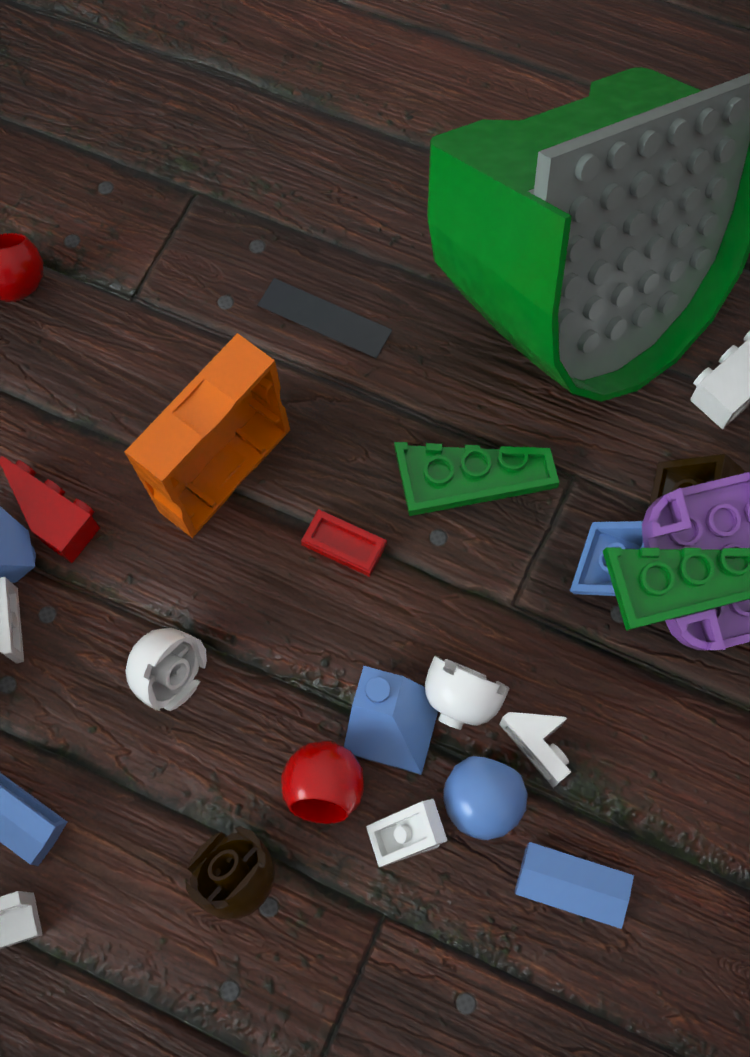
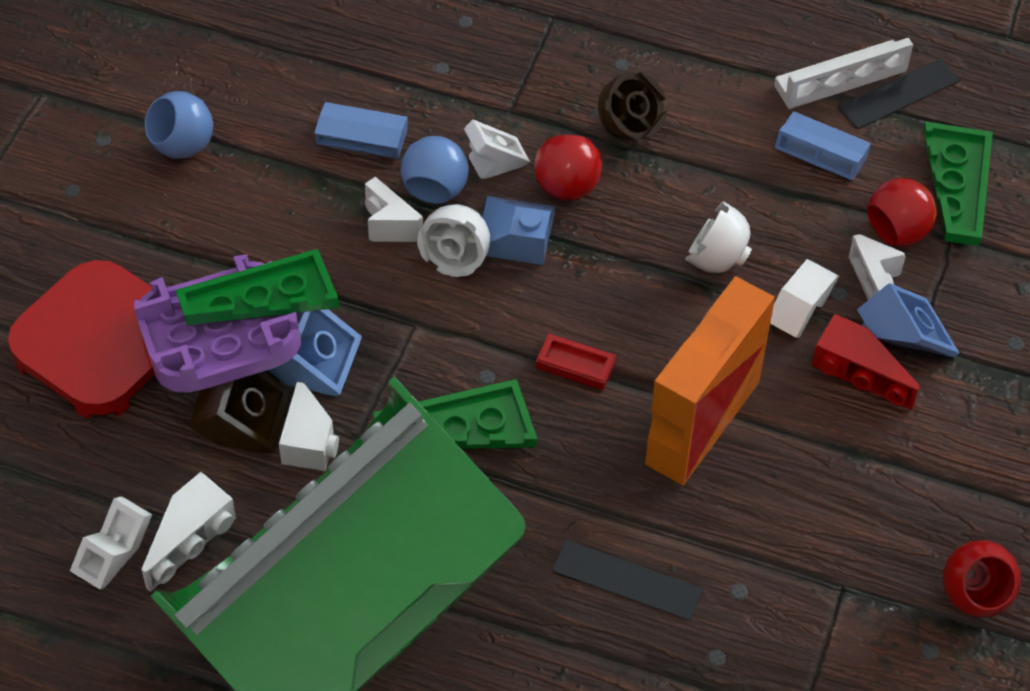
camera: 170 degrees right, 15 degrees down
(85, 593) = (800, 296): none -> white slope
(625, 468) = (307, 433): none -> white slope

